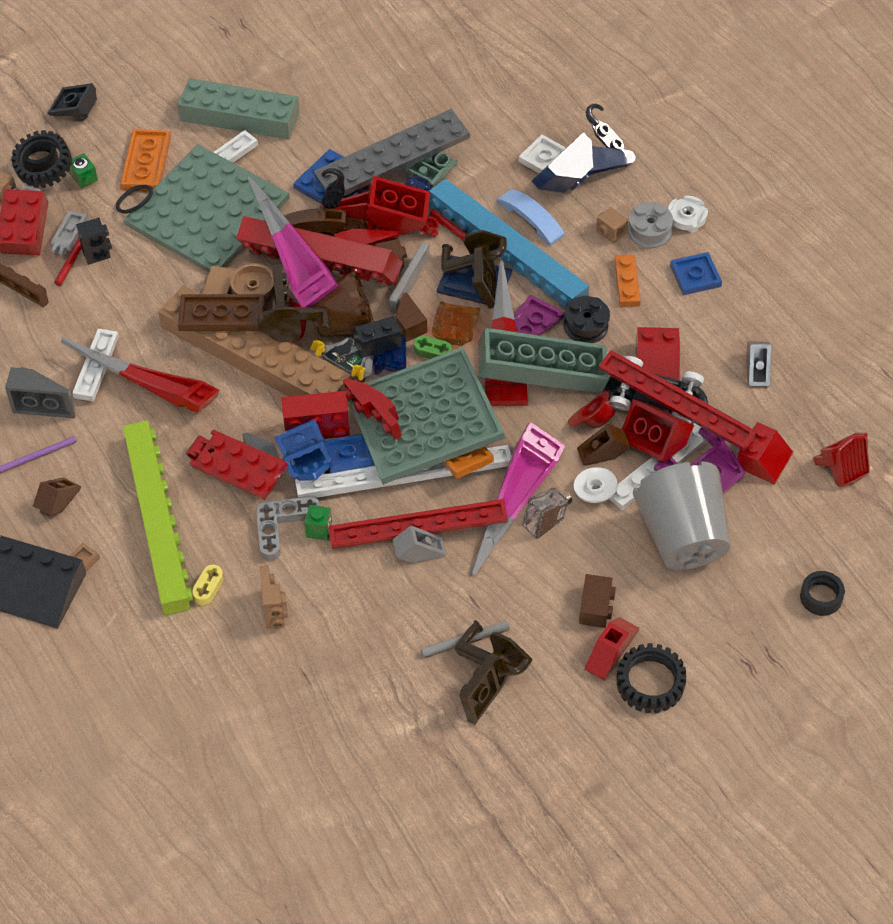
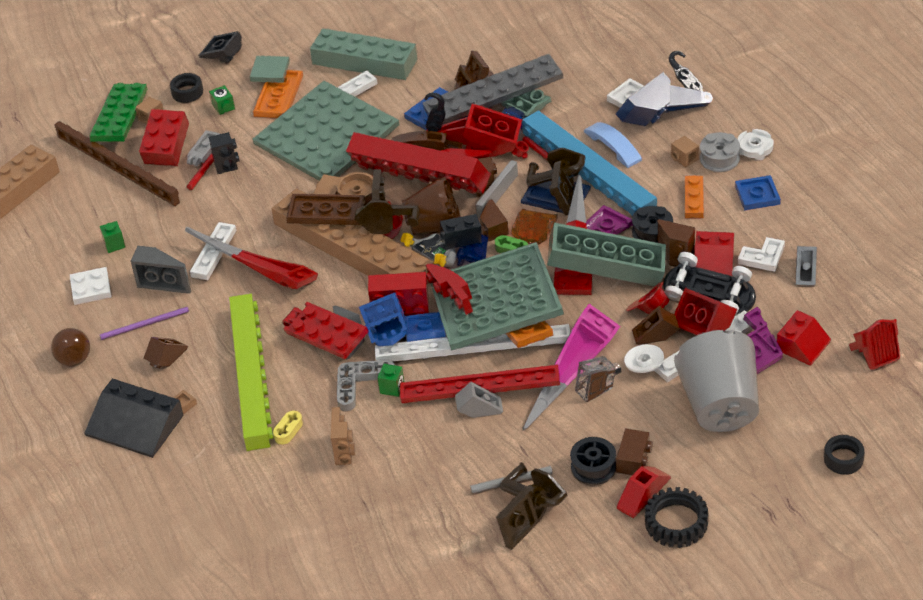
camera: 10 degrees right, 10 degrees down
(49, 175) = (180, 76): black tyre -> none
(133, 130) = (269, 69): none -> sand green tile
(145, 201) = (265, 127): black tyre -> none
(304, 269) = (401, 175): dark pink plate -> none
(365, 132) = (474, 70): none -> reddish brown piece
(554, 613) = (593, 460): none -> black wheel
(616, 336) = (677, 239): none -> reddish brown slope
(678, 400) = (725, 289): red plate -> none
(710, 356) = (763, 259): none -> white plate

